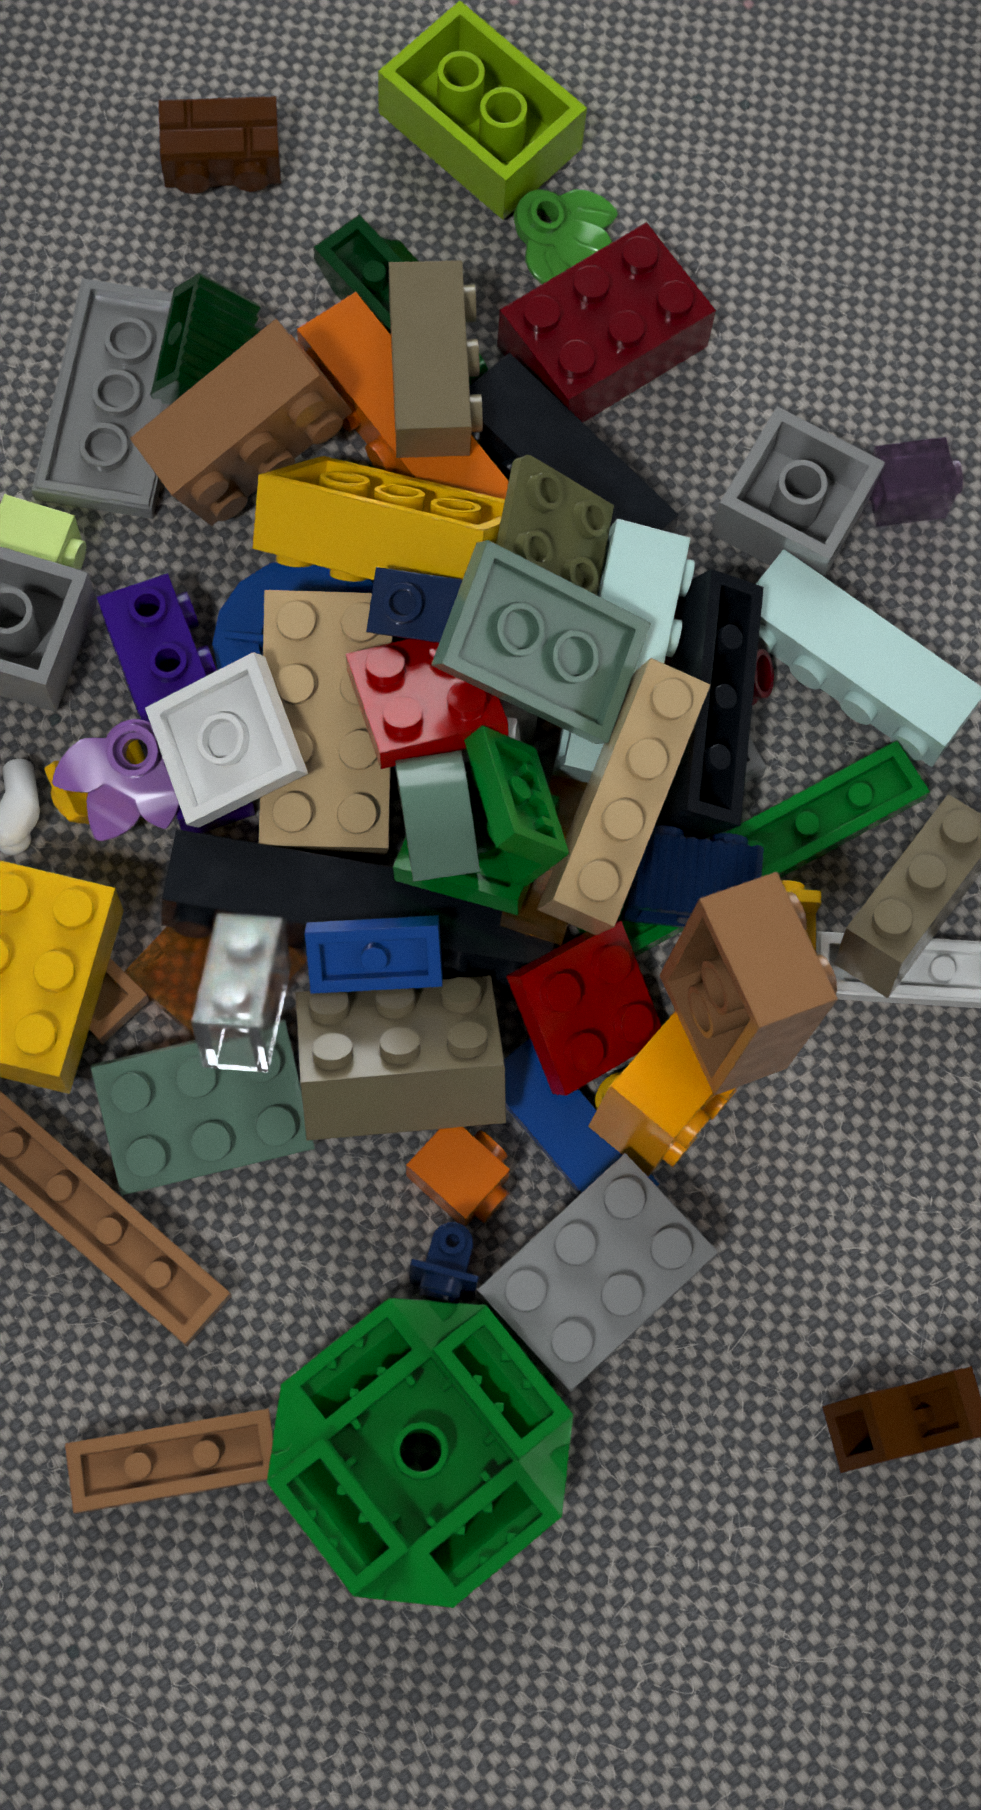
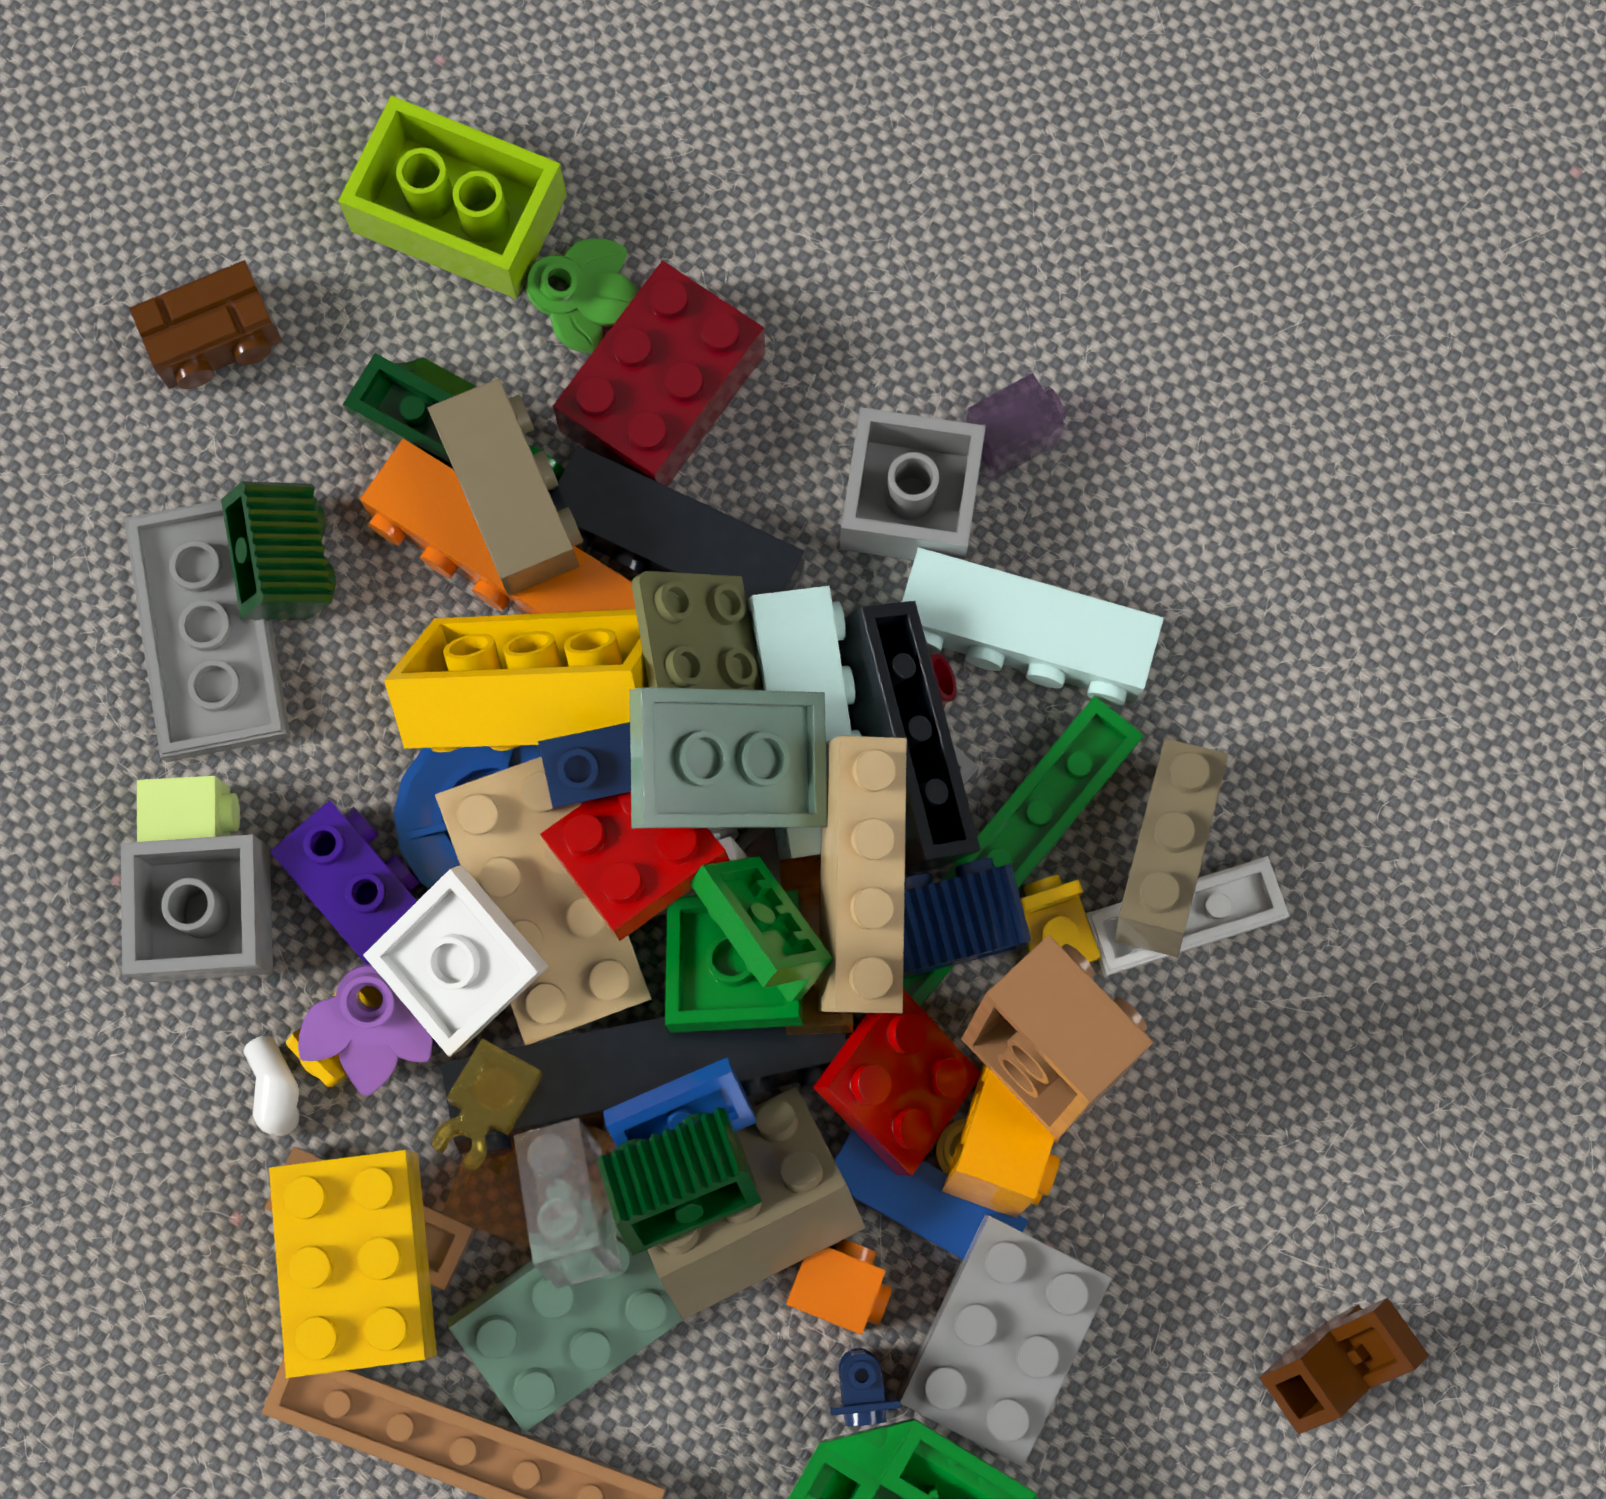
camera: 15 degrees left, 5 degrees up
(208, 866) = (490, 1094): none -> clear yellow plate
(240, 423) = (346, 625): medium nougat brick -> none
(351, 1001) = (678, 1180): none -> dark green brick
(437, 816) = (691, 968): sand green brick -> none

